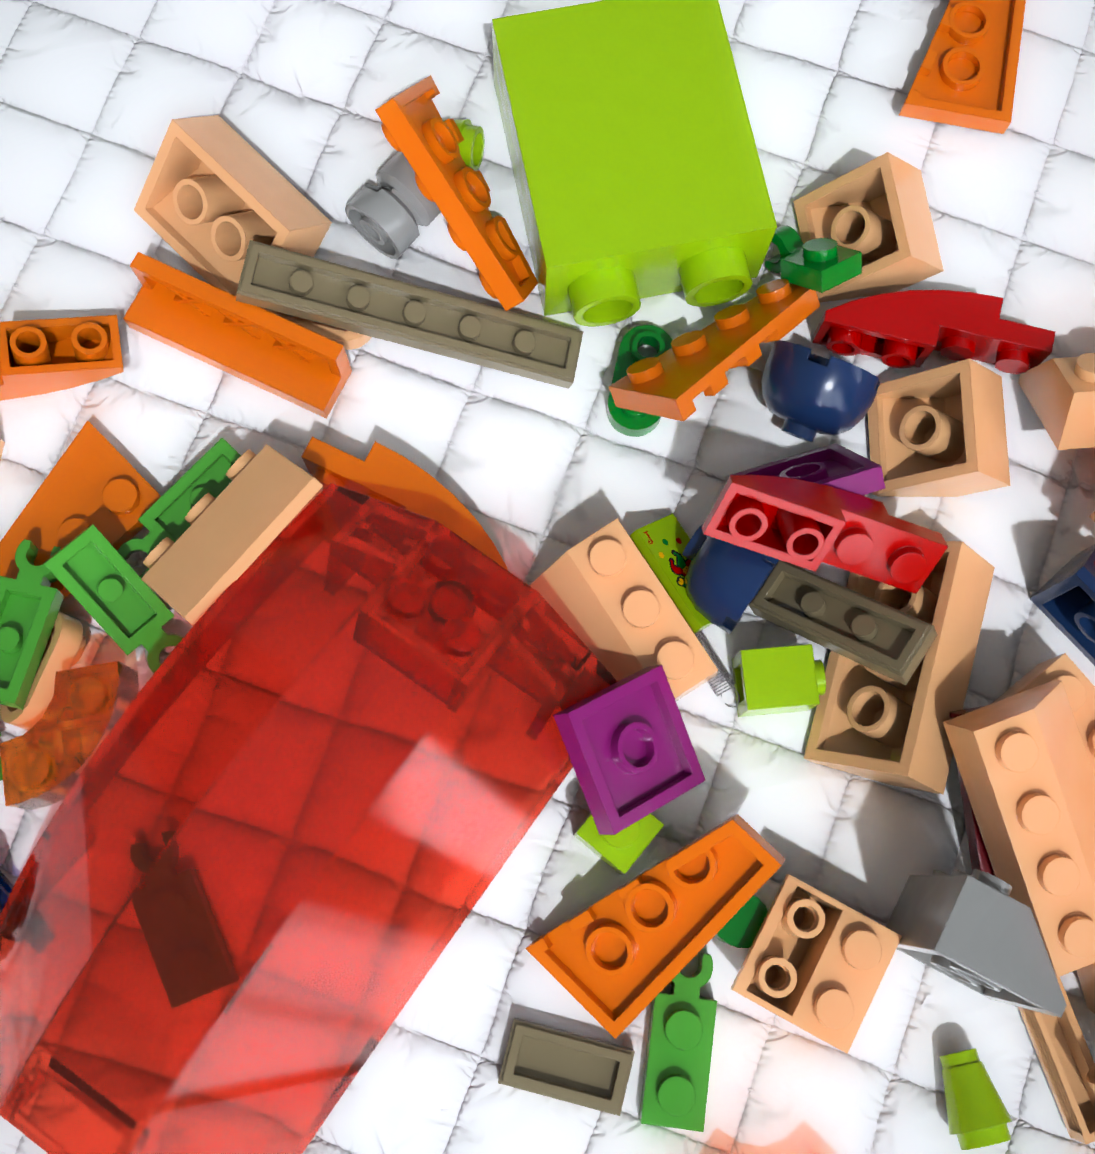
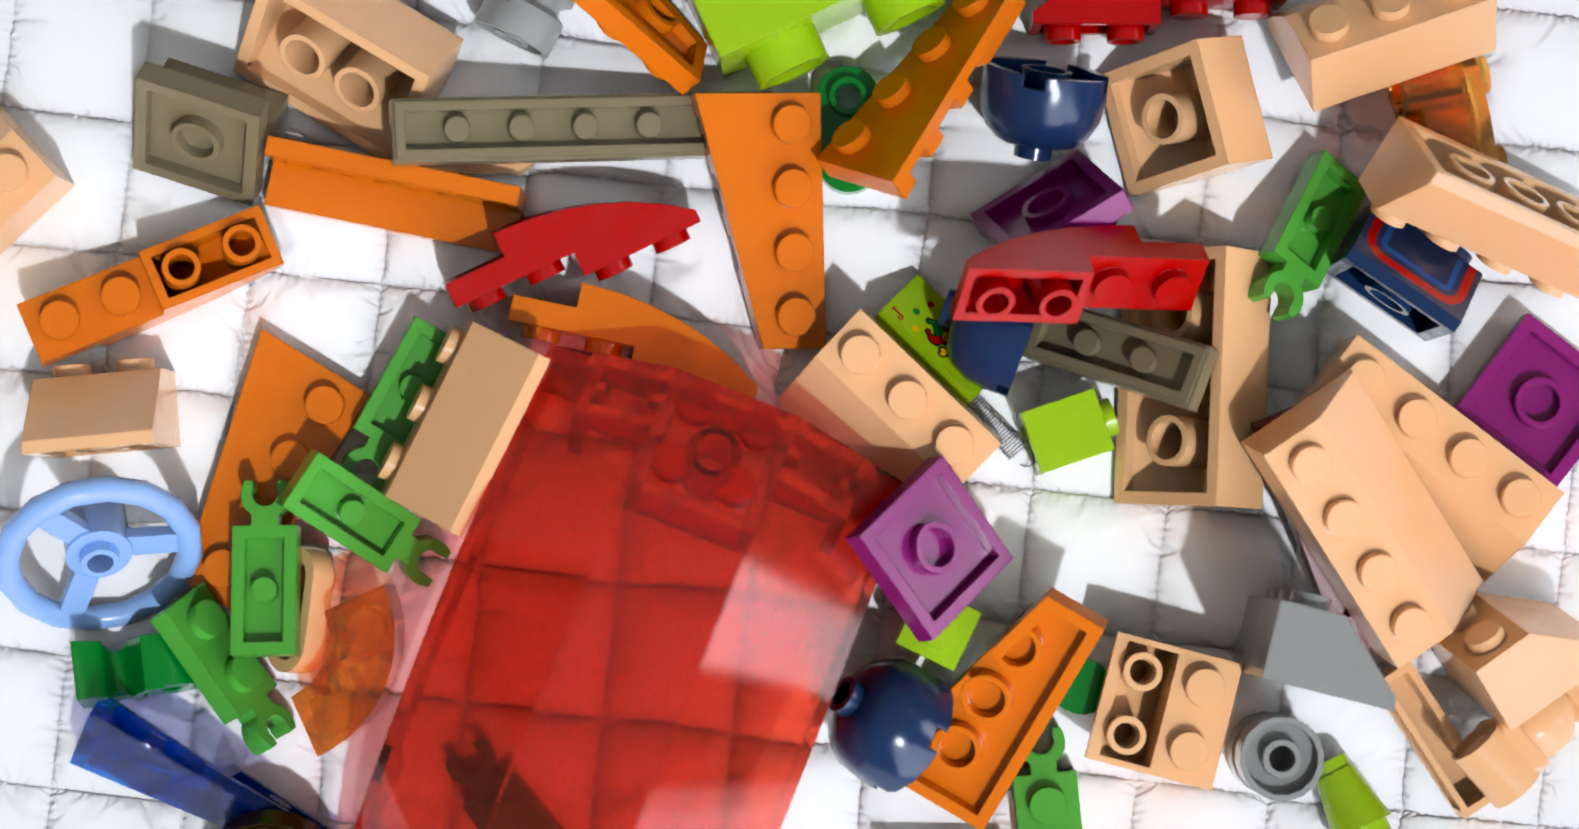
camera: 10 degrees left, 10 degrees up
(87, 240) = (204, 128): none -> dark tan bracket
(398, 405) = (593, 234): none -> red slope
(549, 907) = (886, 721): none -> dark blue cylinder
(559, 423) = (772, 206): none -> orange wing
(913, 1035) = (1275, 755): none -> light grey wheel
(1030, 557) = (1307, 233): none -> bright green plate

